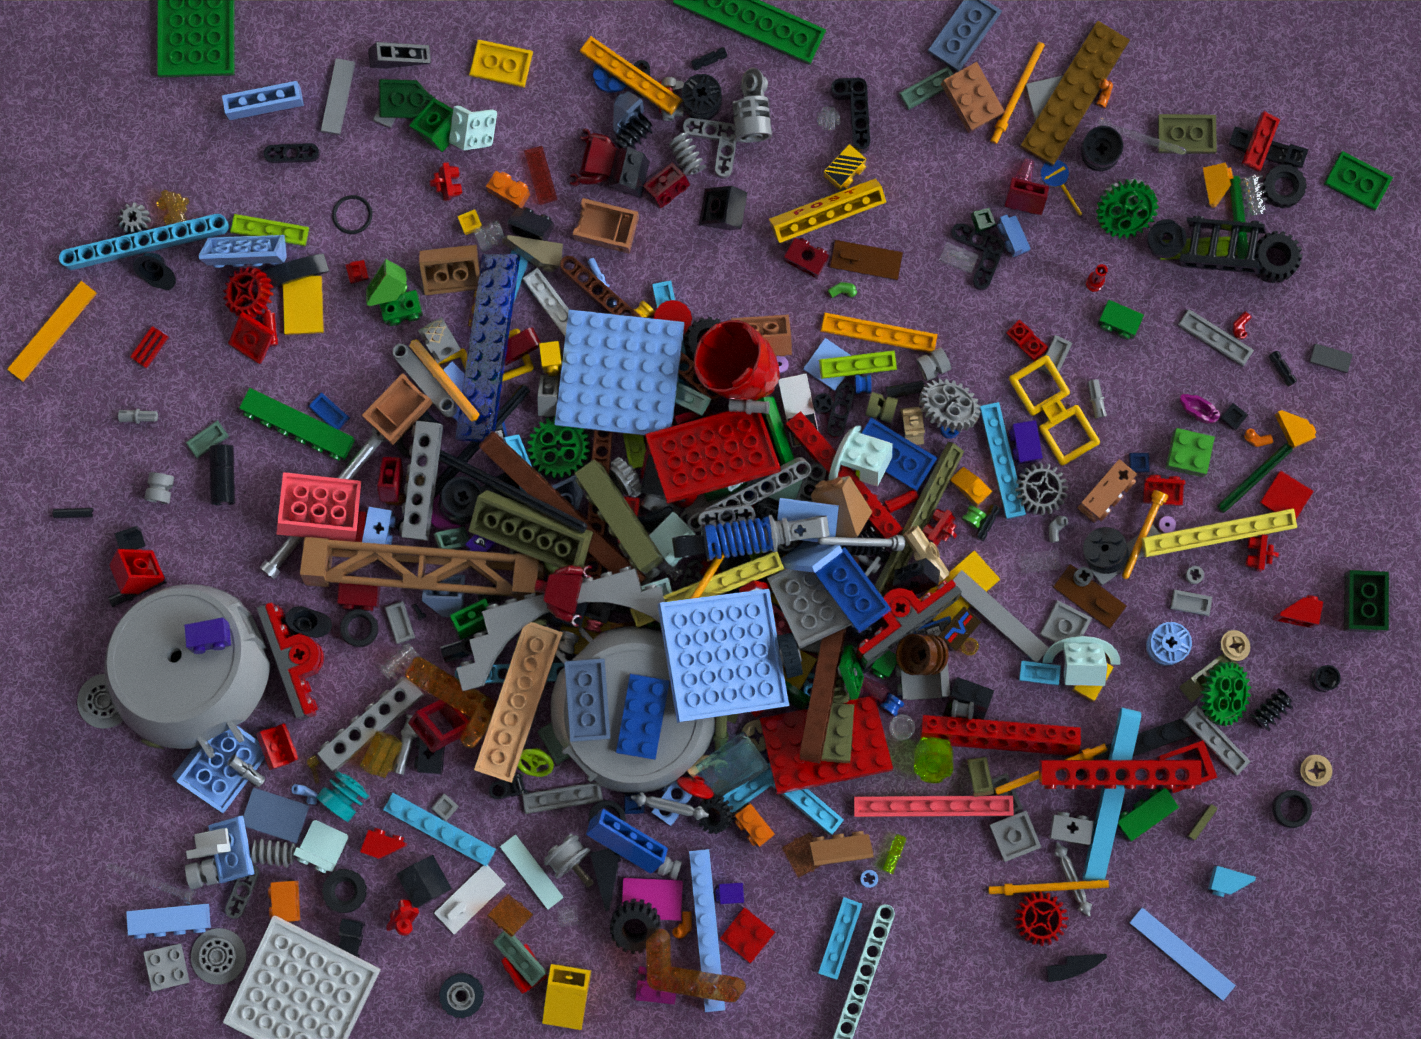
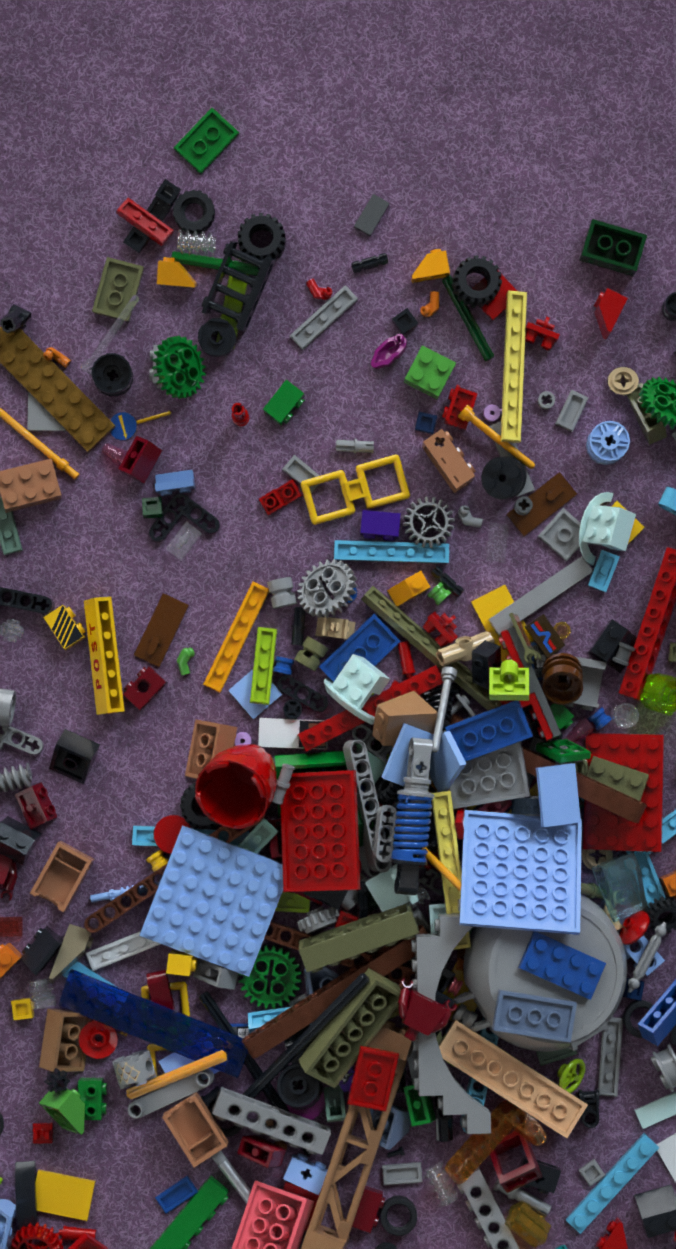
camera: 75 degrees left, 5 degrees up
(411, 262) = (53, 1077): none -> black gear
(452, 293) = (93, 1047): none -> red dish
(487, 564) = (373, 1078): none -> red tile
(807, 672) = (558, 795): none -> light blue tile
(905, 596) = (509, 682): none -> lime plate
(952, 605) = (529, 651): none -> olive flag
(1130, 43) = (15, 318): none -> black piece
(1308, 469) = (482, 267): none -> black tyre

